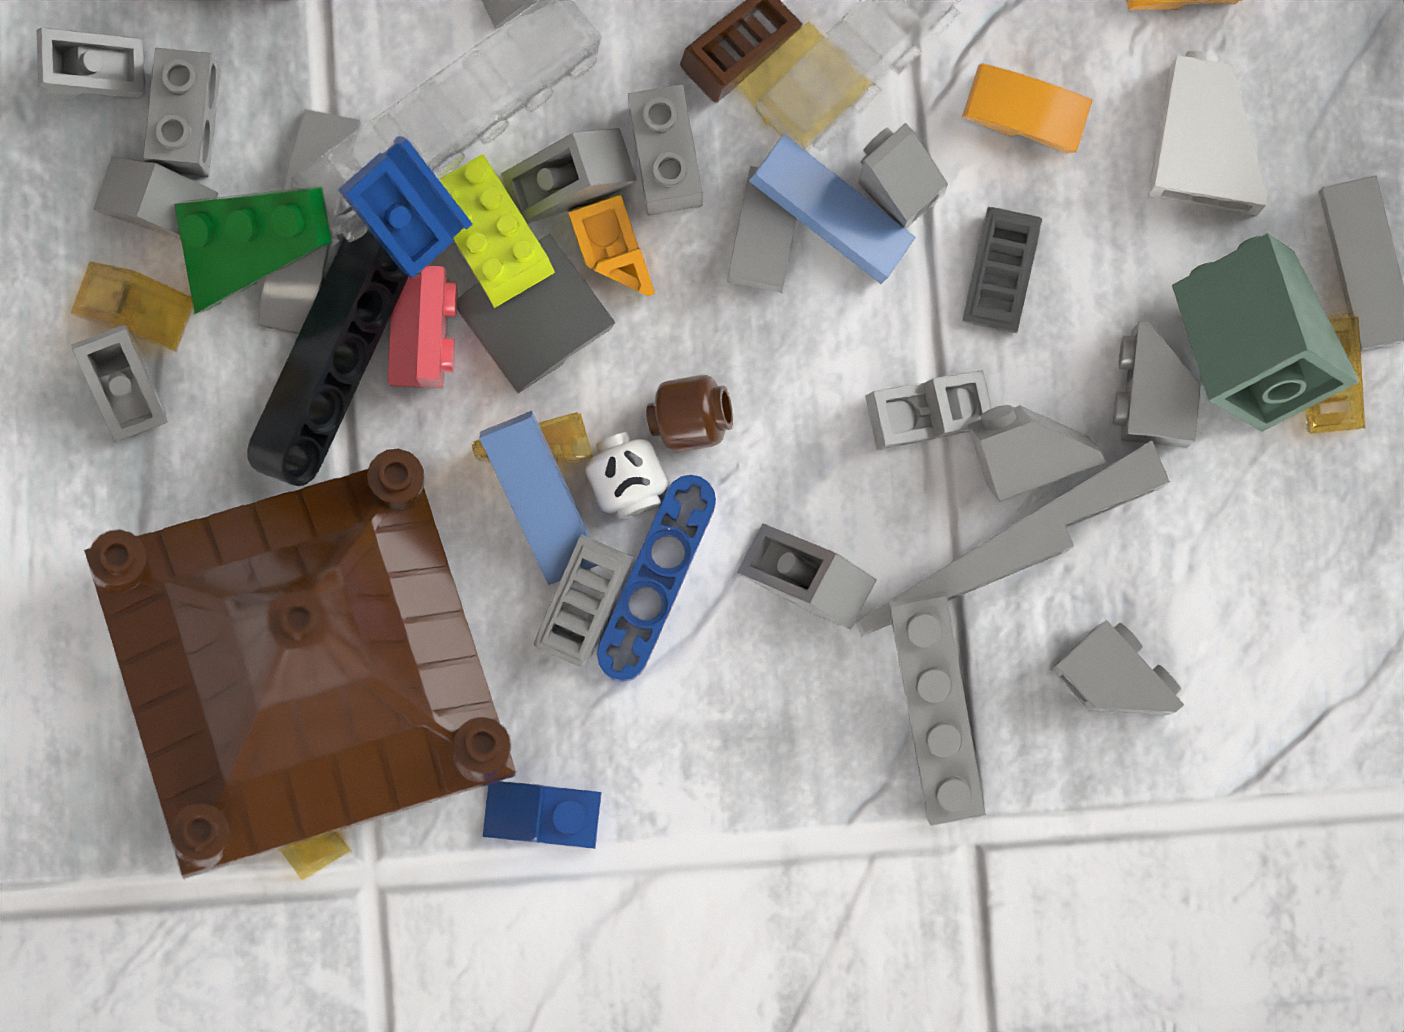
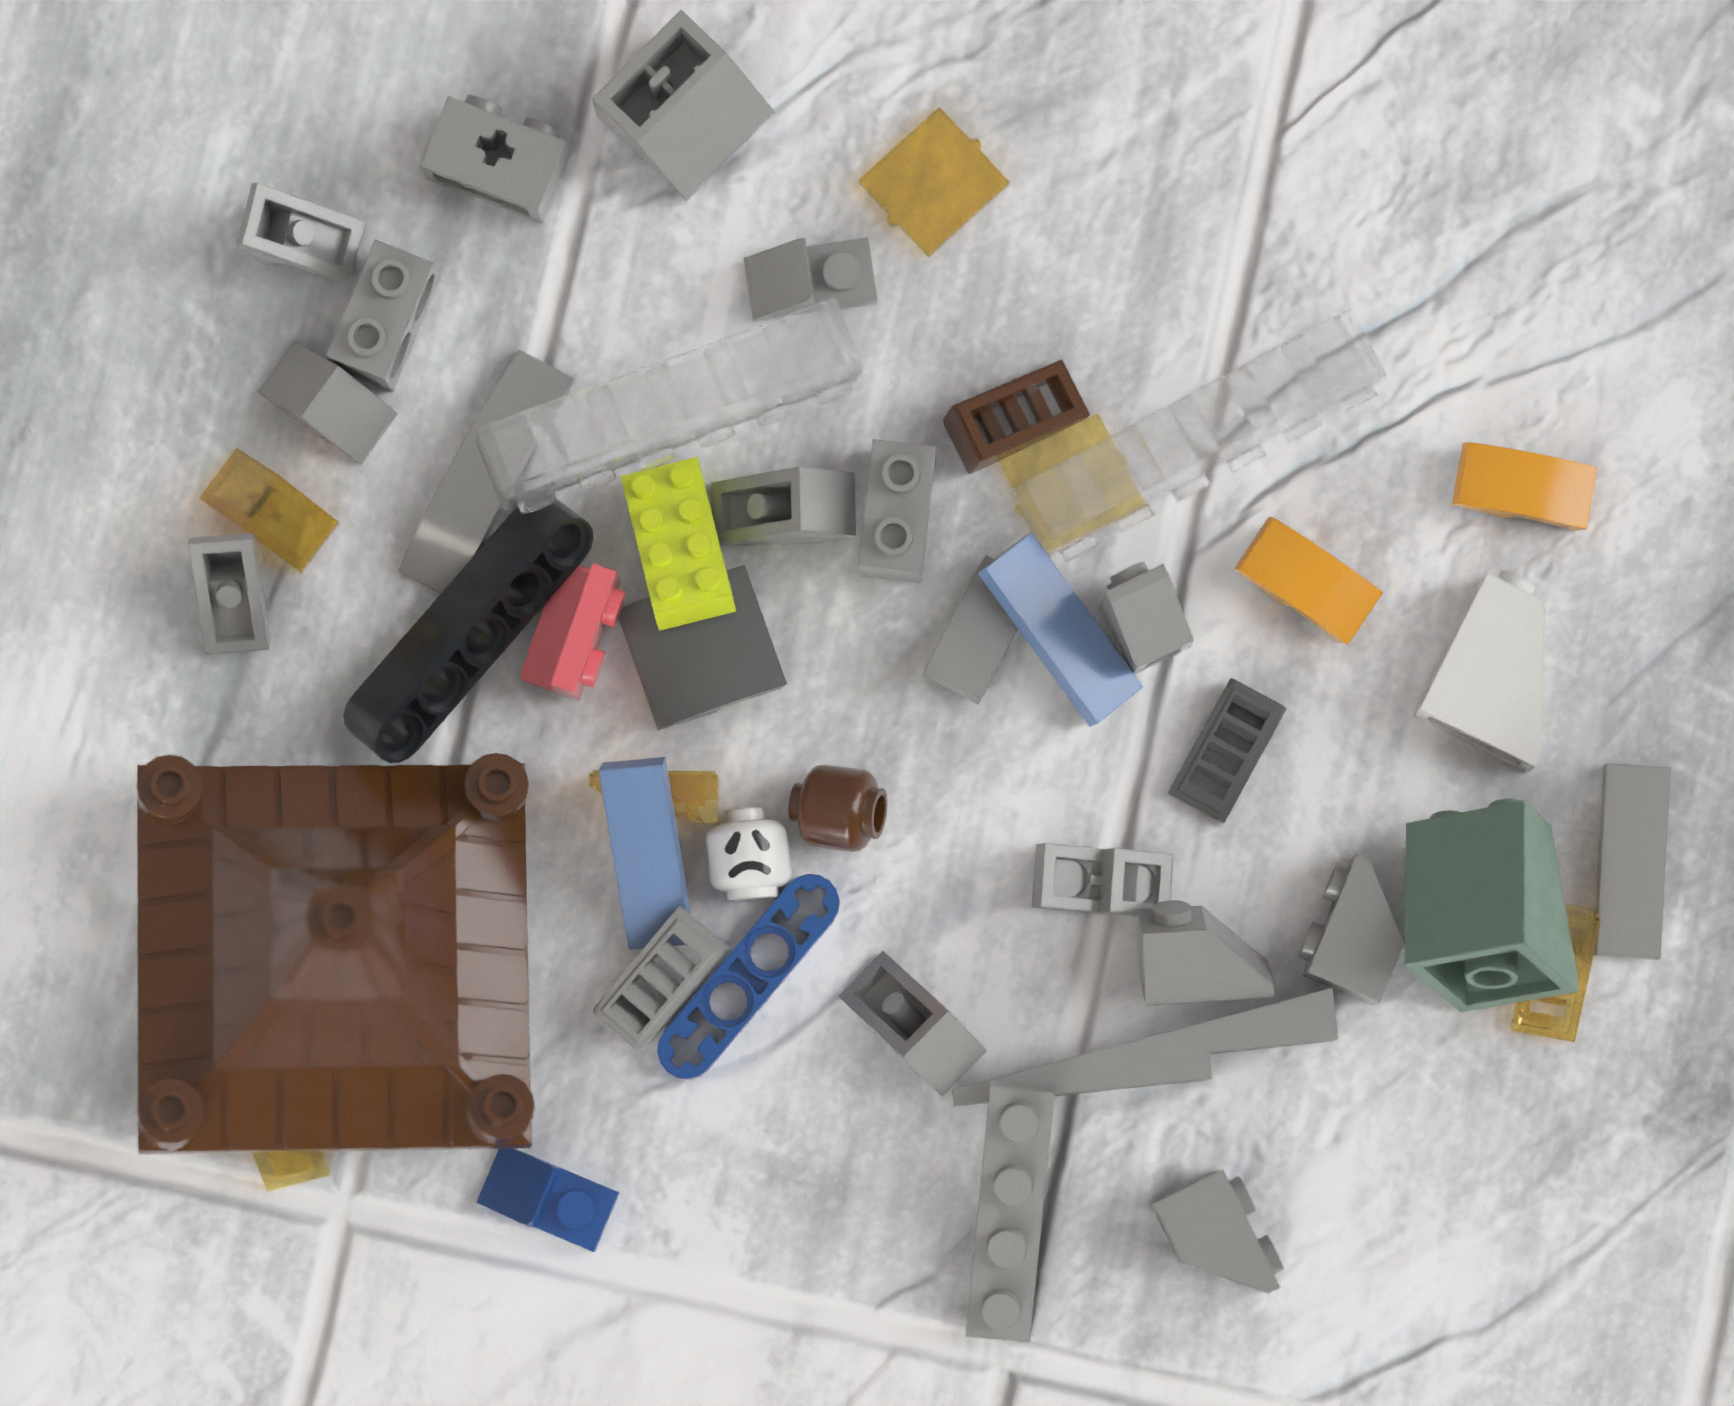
camera: 20 degrees right, 0 degrees up
(247, 237) = (413, 477): green wing -> none
(405, 206) = (592, 495): blue plate -> none
(610, 243) = (808, 595): light orange slope -> none

